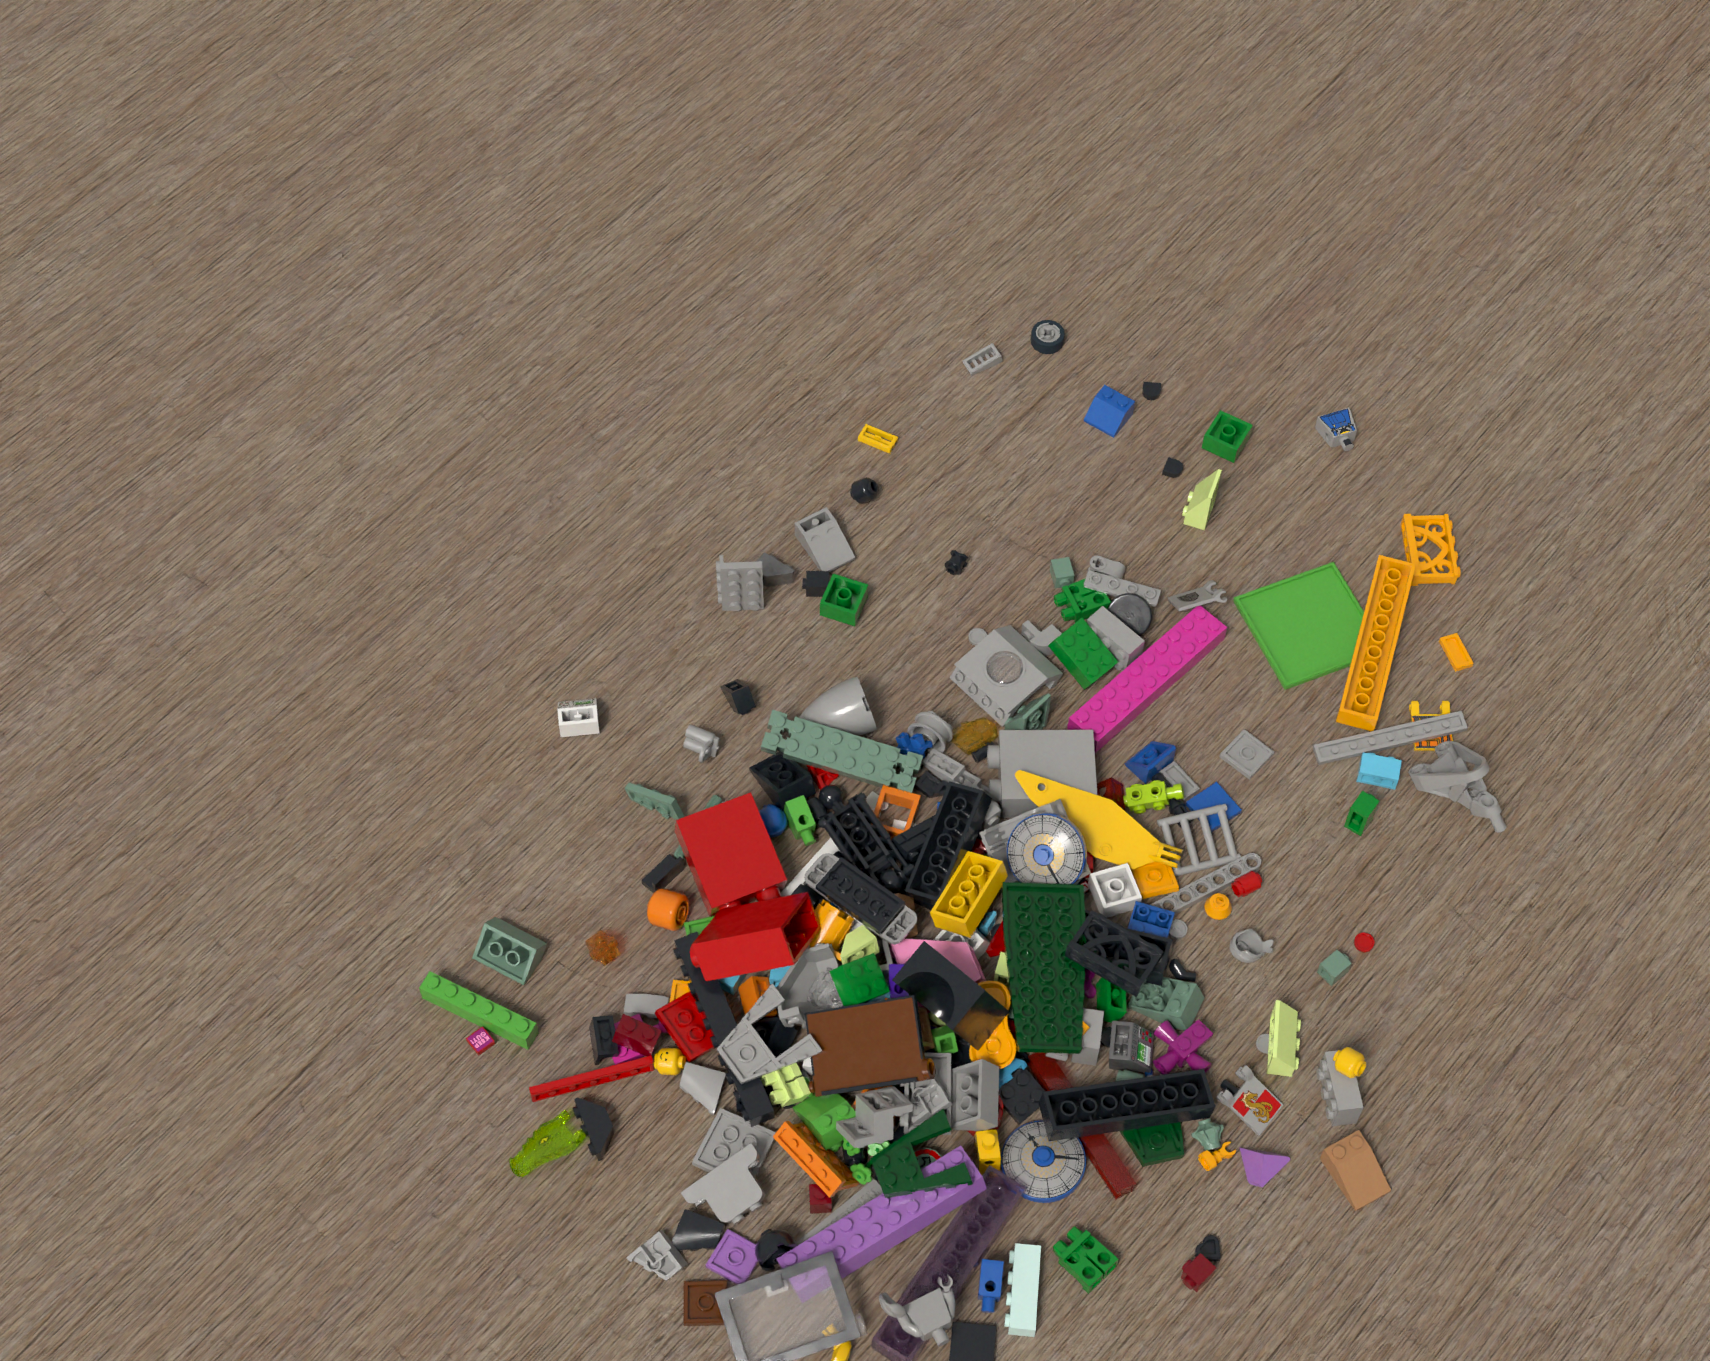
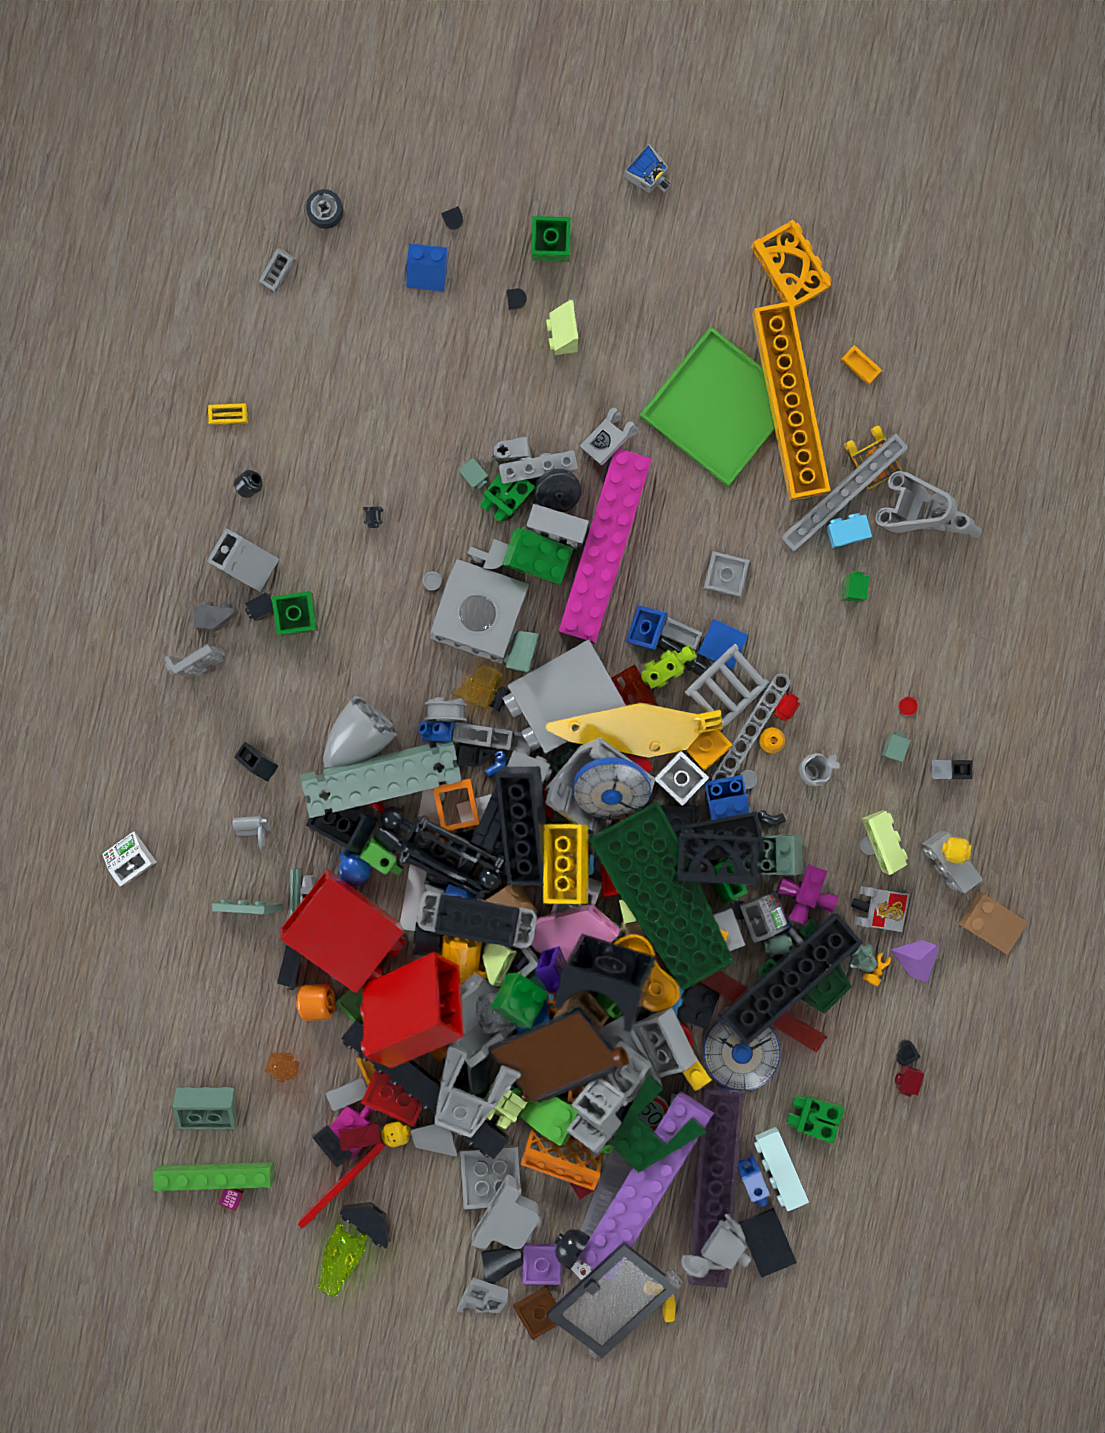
camera: 30 degrees left, 30 degrees up
(1380, 1012) = (952, 769): none -> black slope

